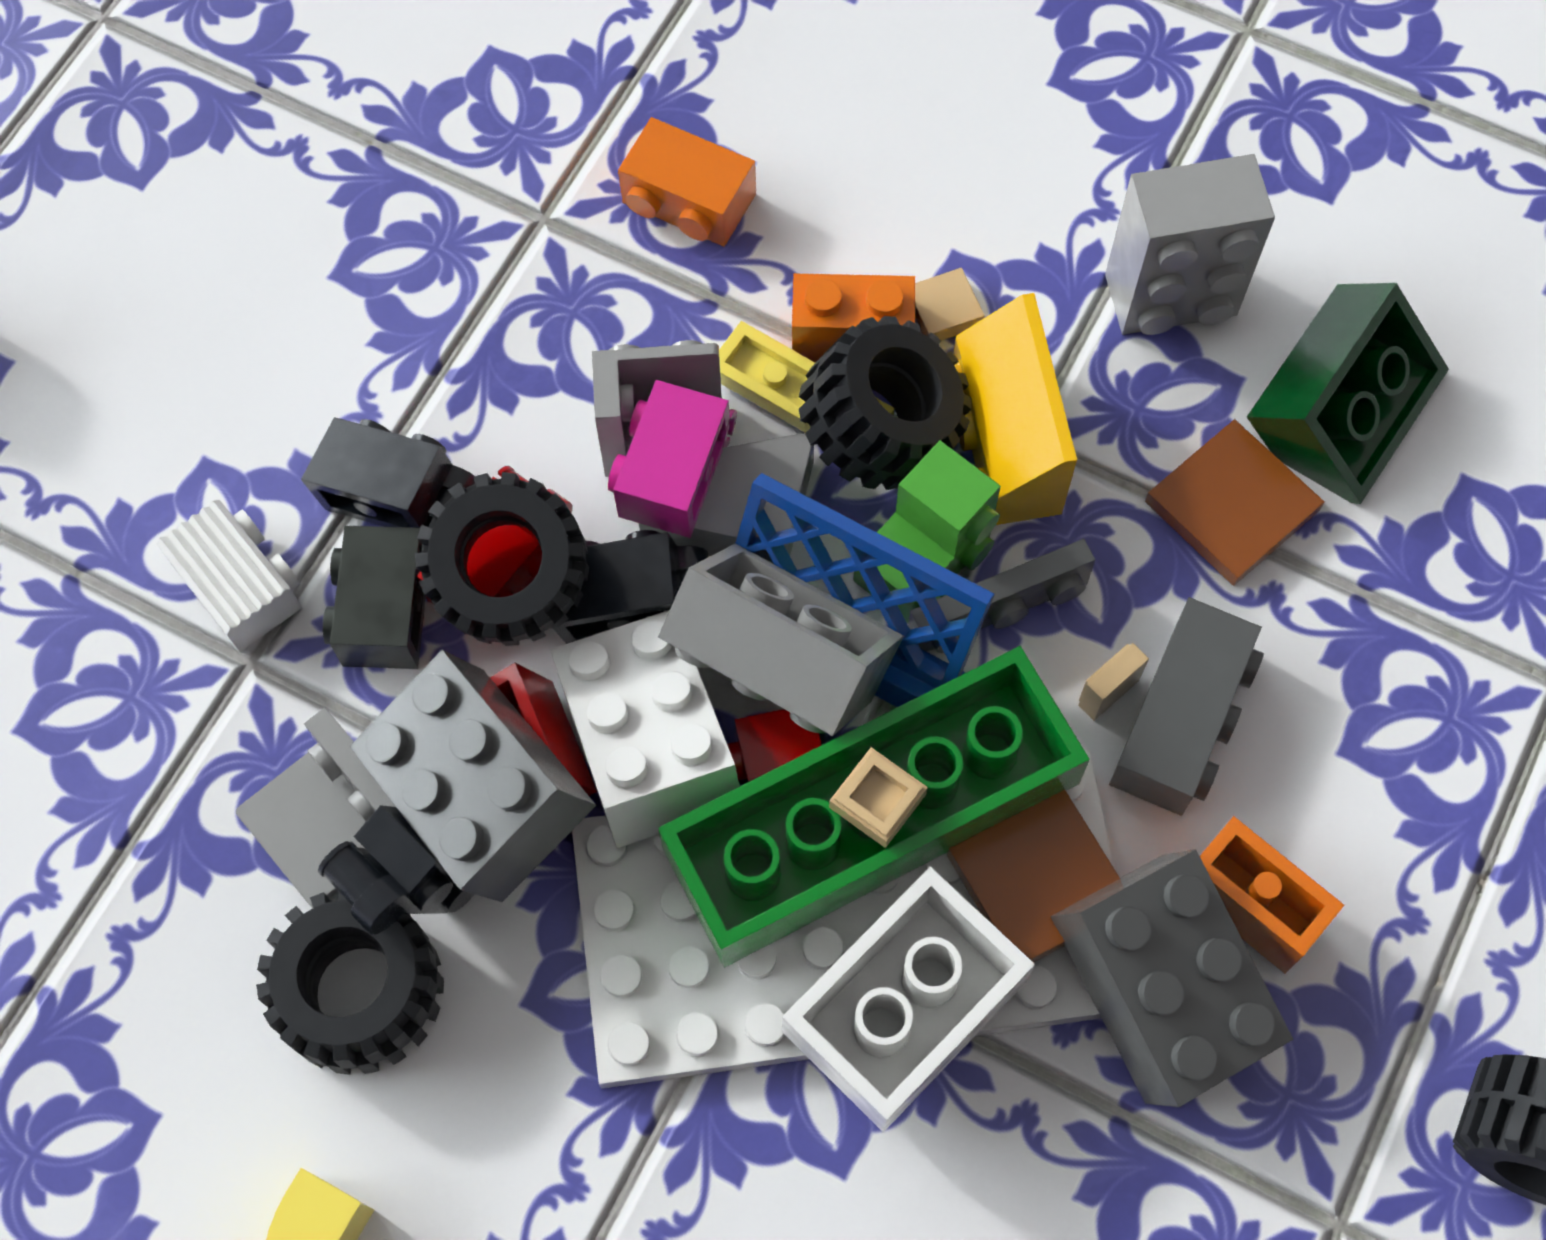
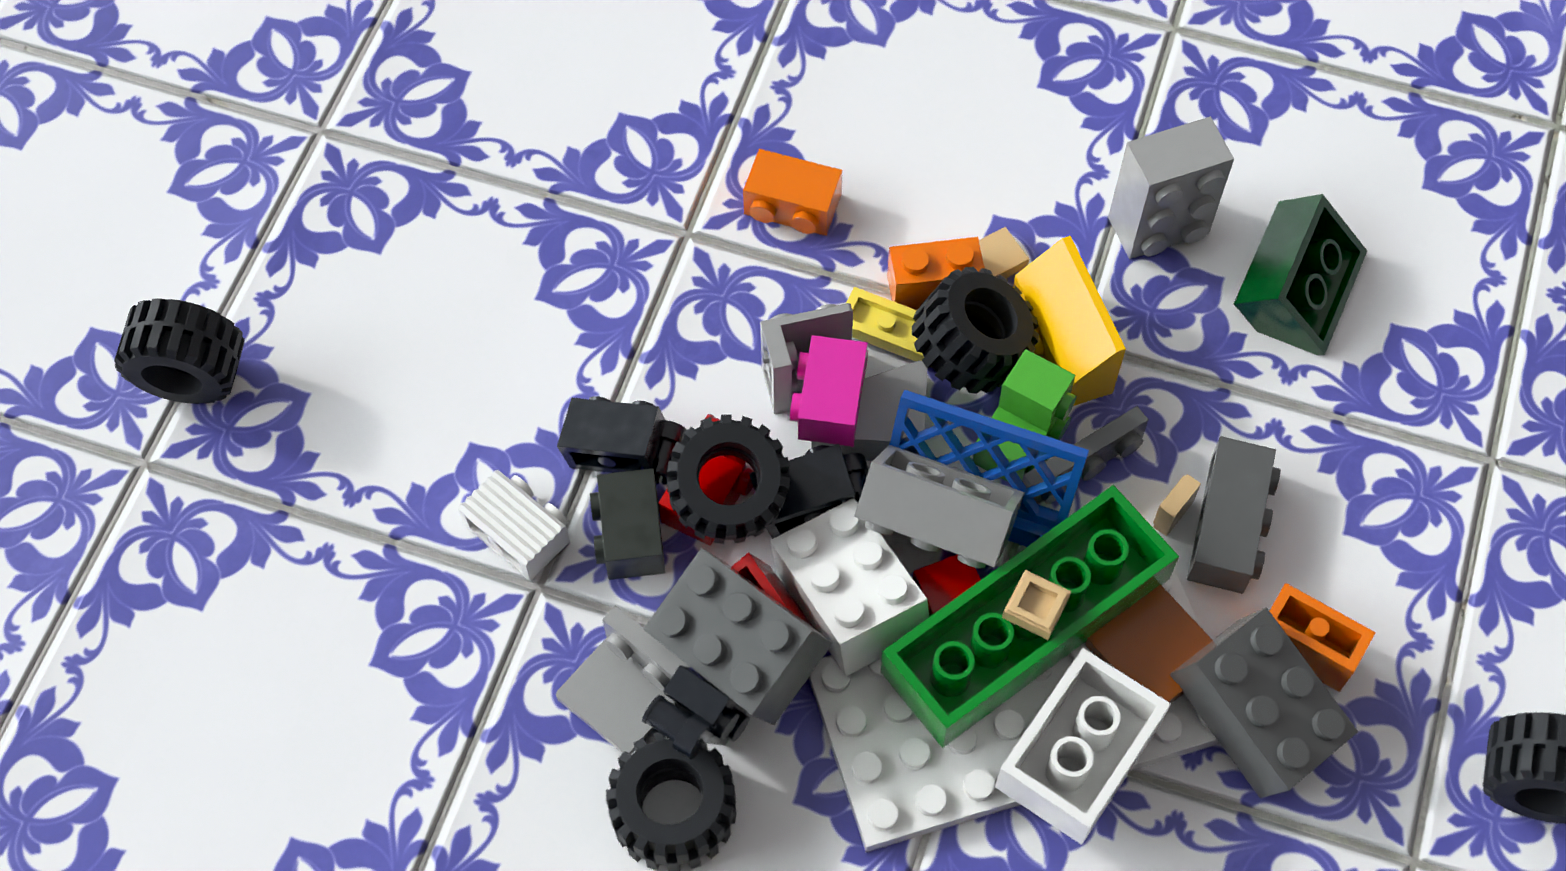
camera: 10 degrees left, 5 degrees down
(1234, 502) = (1235, 366): dark orange tile -> none

